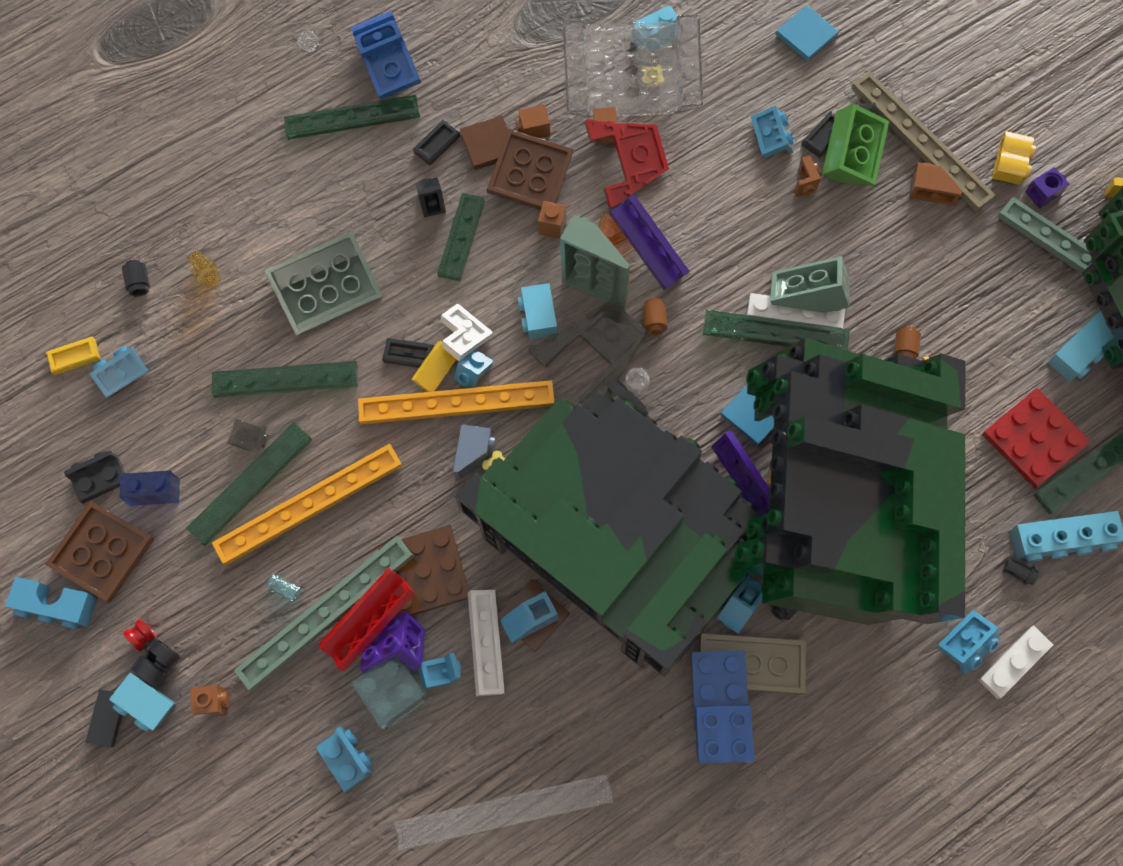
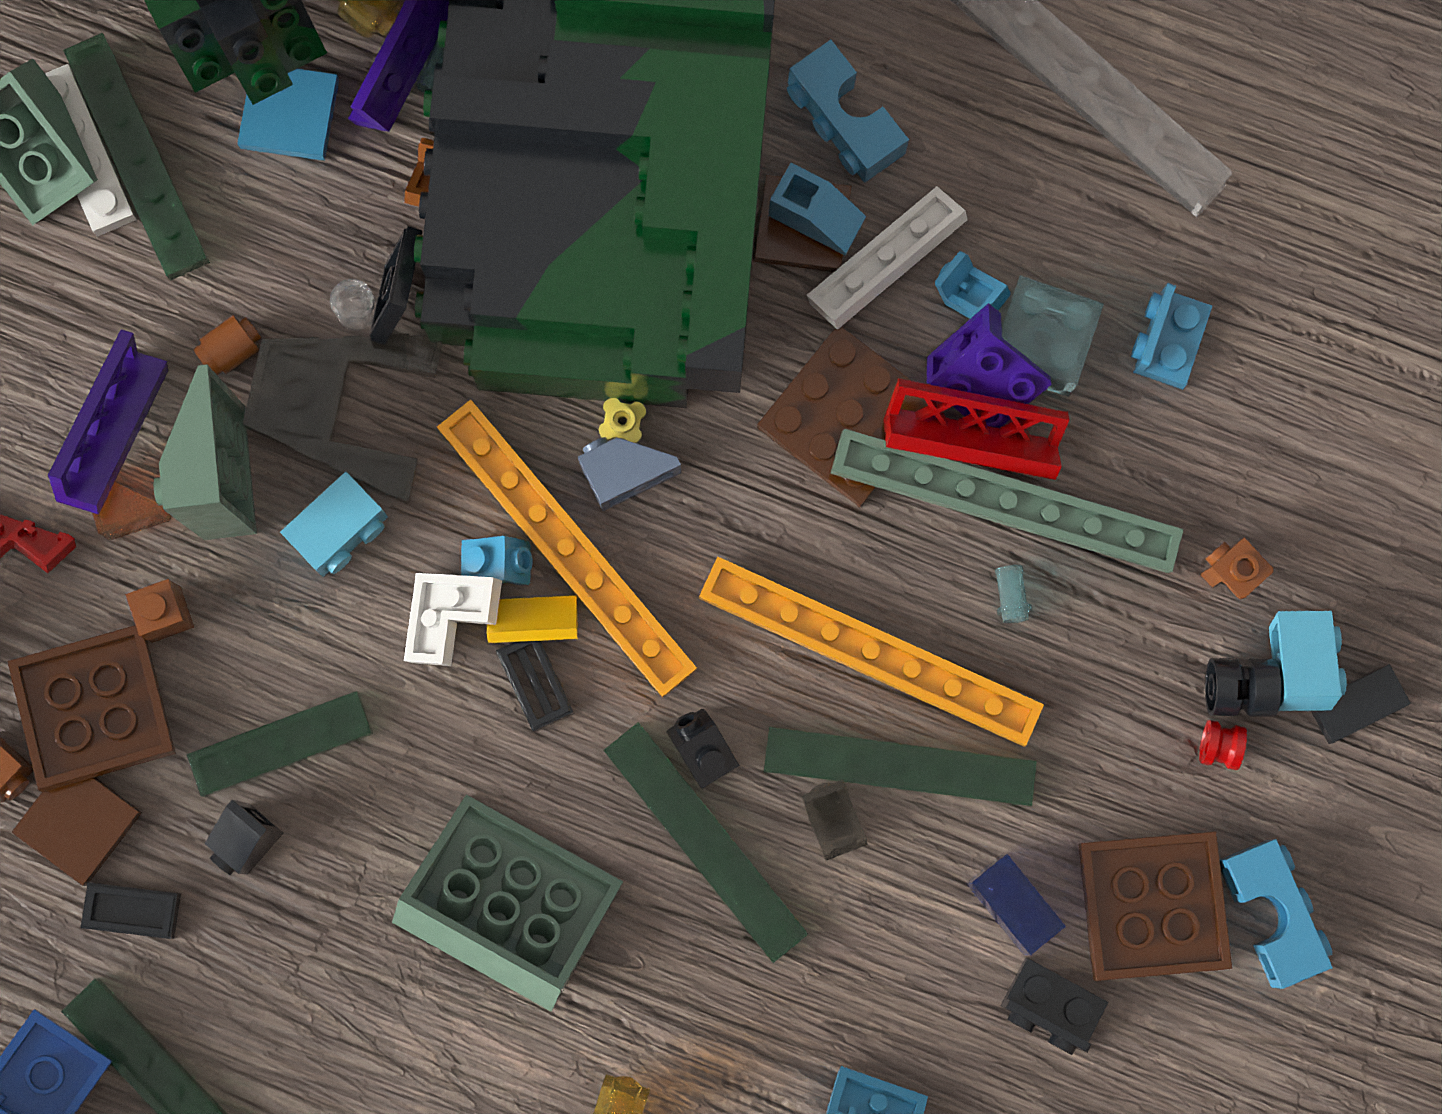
camera: 130 degrees left, 10 degrees up
(325, 401) = (702, 747): none -> black bracket
(551, 670) = (864, 143): none -> dark azure arch

